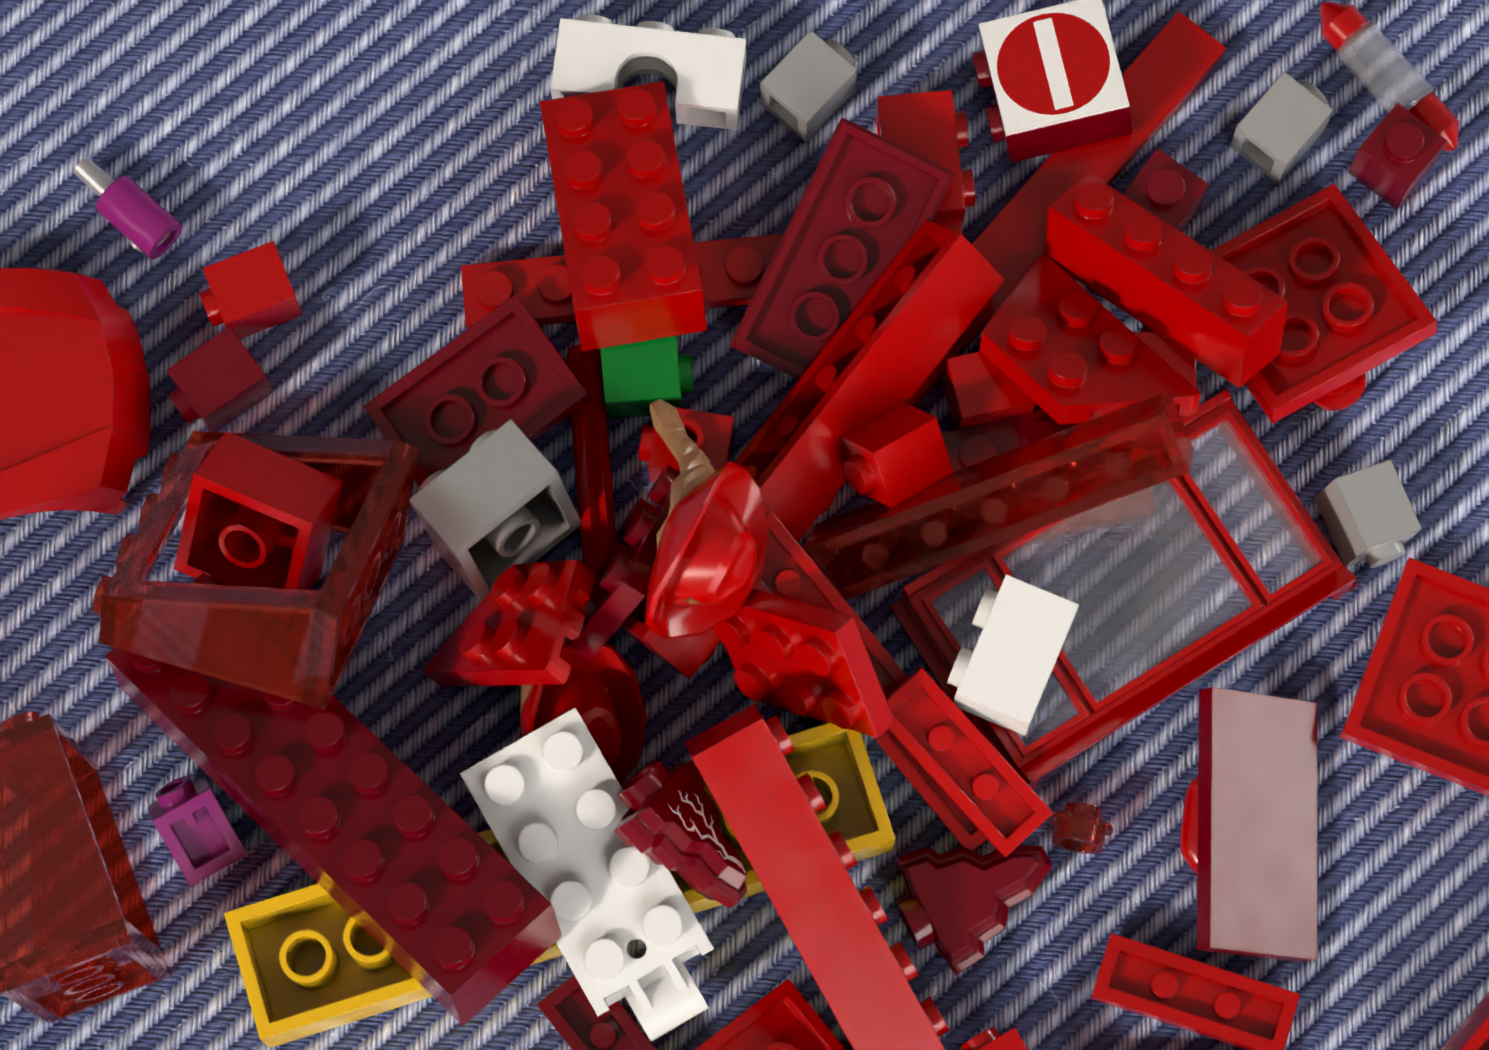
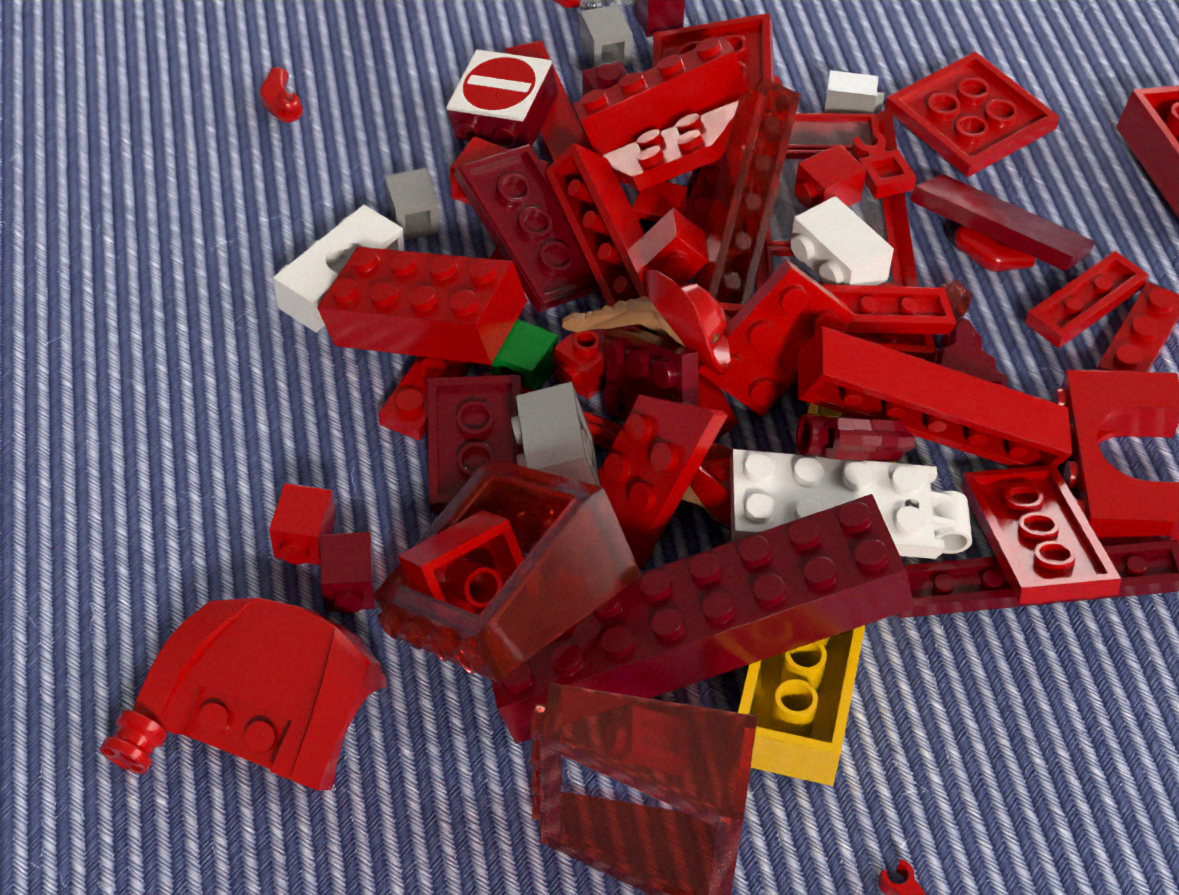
camera: 60 degrees left, 25 degrees down
(131, 210) = (186, 566): magenta piece -> none
(1126, 577) = (829, 175): none -> red brick
(1204, 634) = (885, 171): none -> red plate

